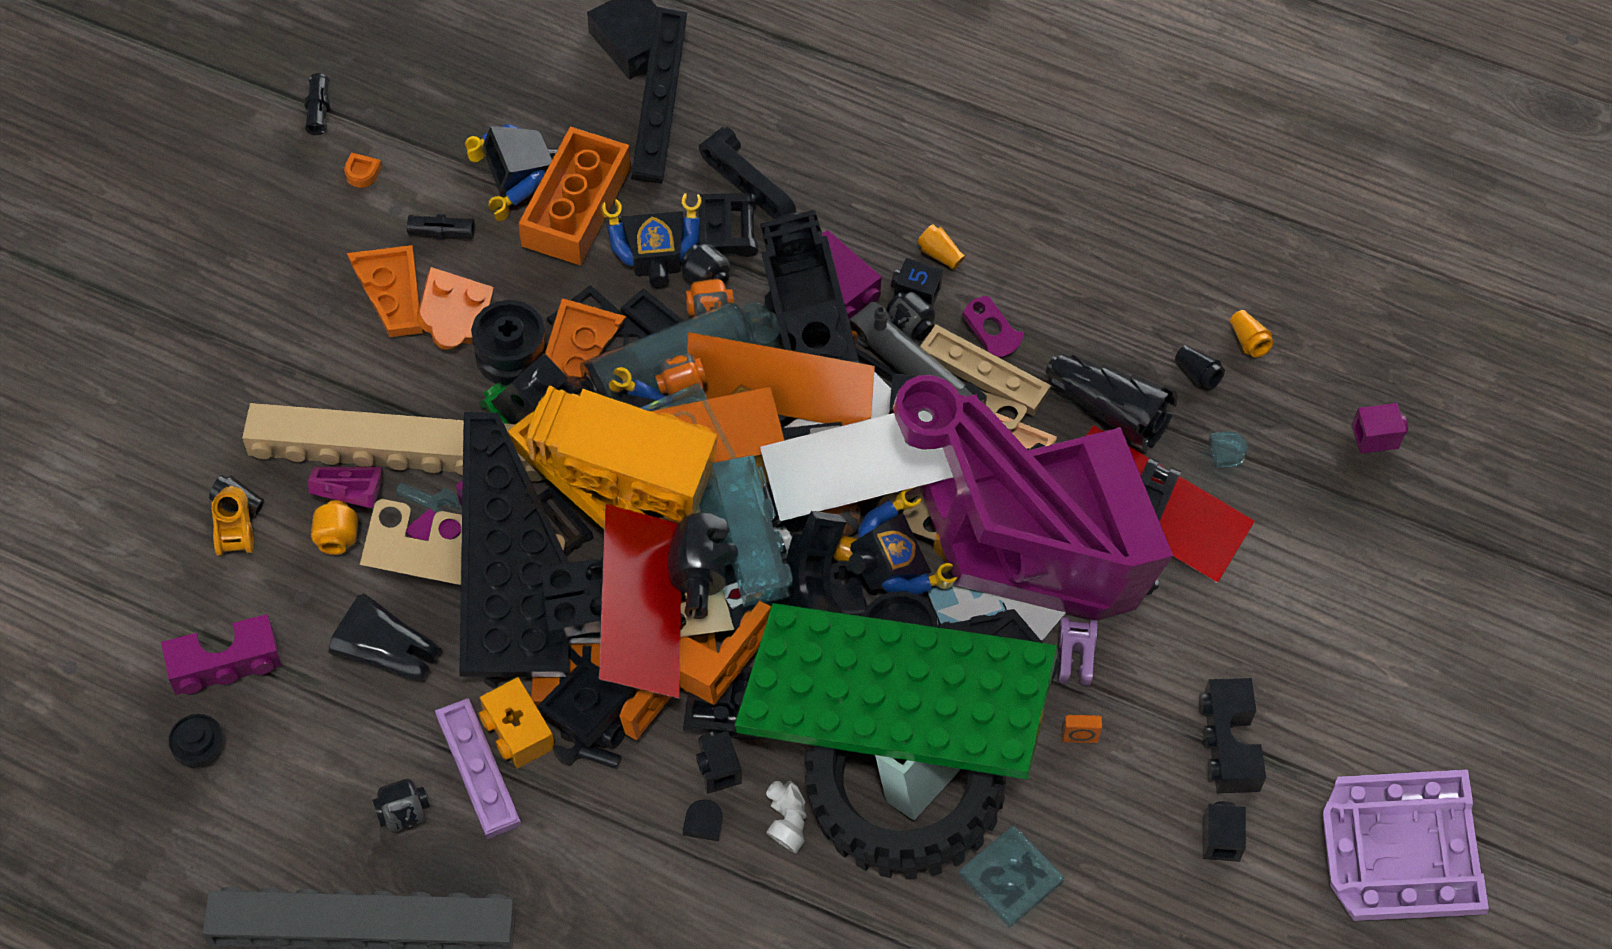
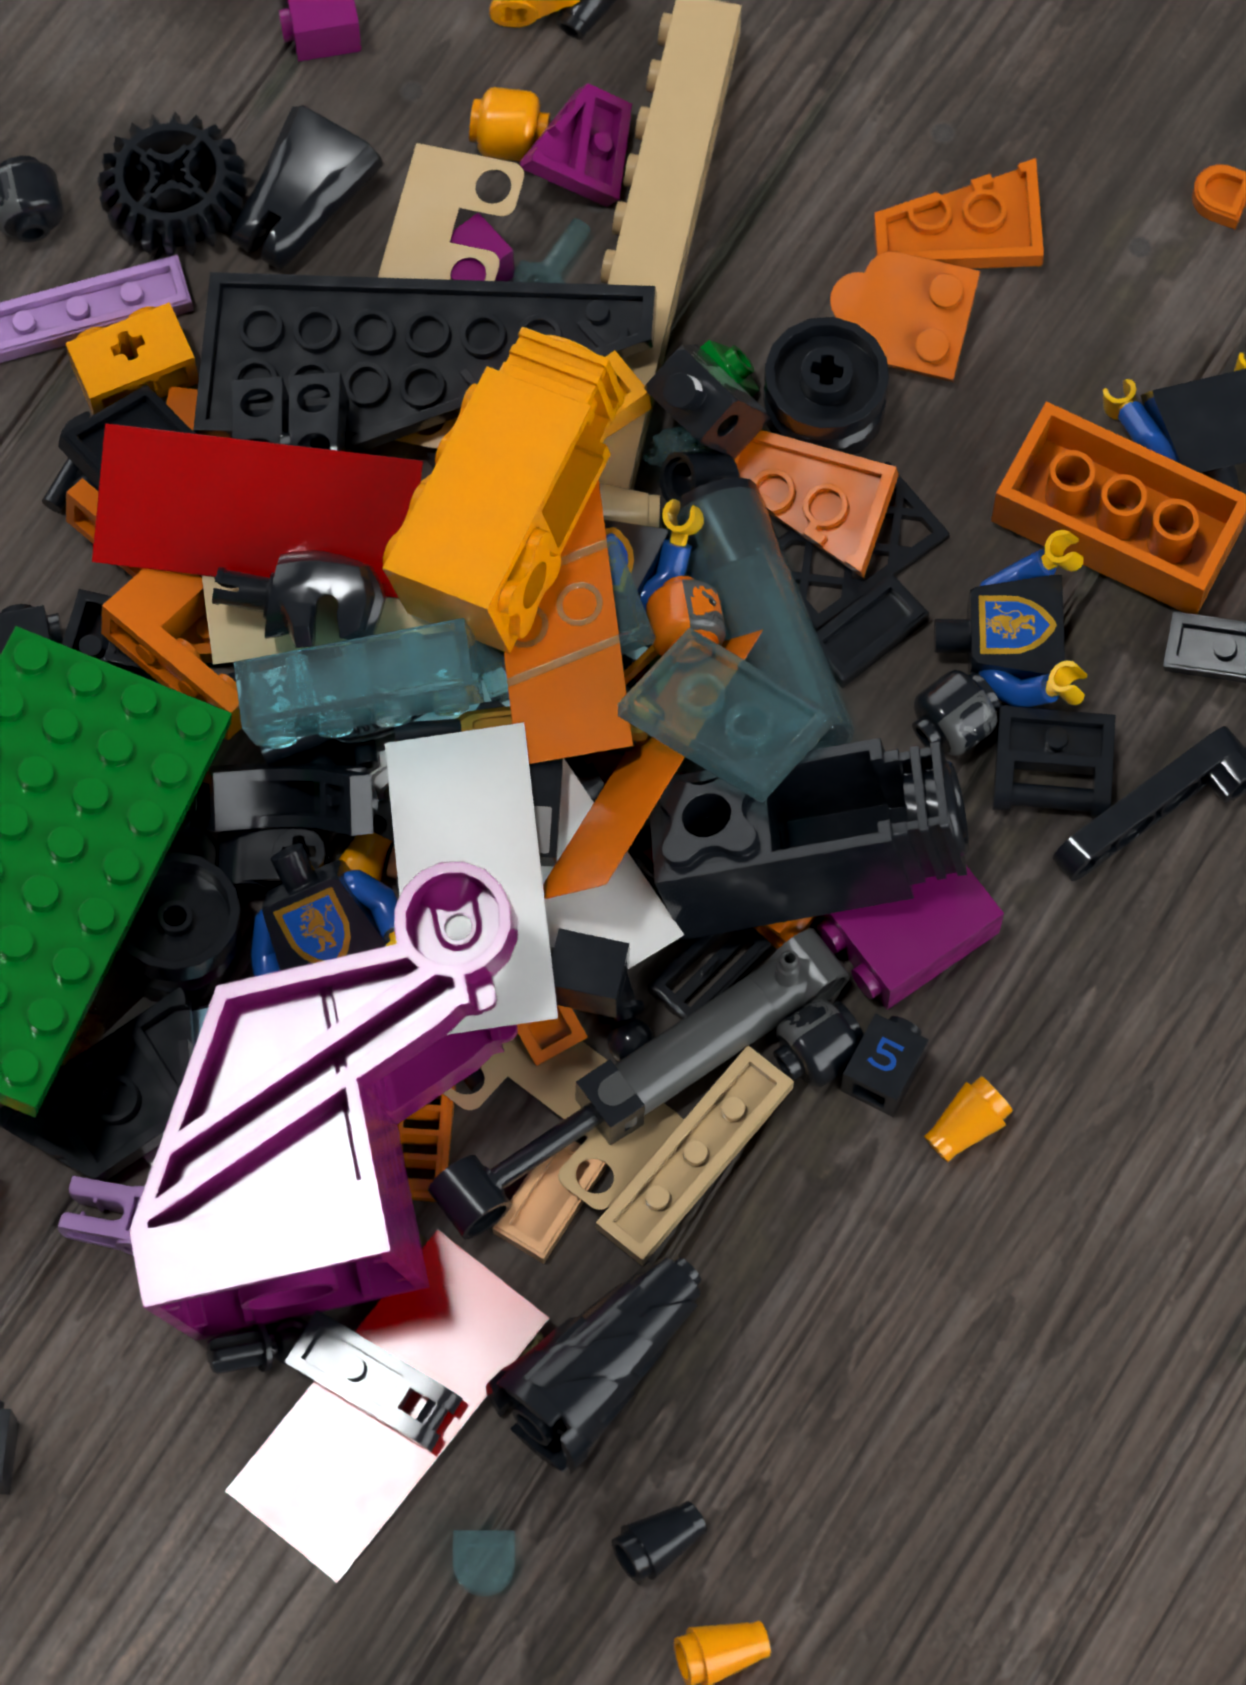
camera: 100 degrees right, 10 degrees up
(381, 699) = (173, 204): none -> black gear
(441, 226) = (1086, 306): black pin -> none
(707, 296) = (884, 707): orange head -> none
(753, 331) = (725, 715): none -> clear light blue tile
(1000, 345) = (749, 1190): magenta piece -> none

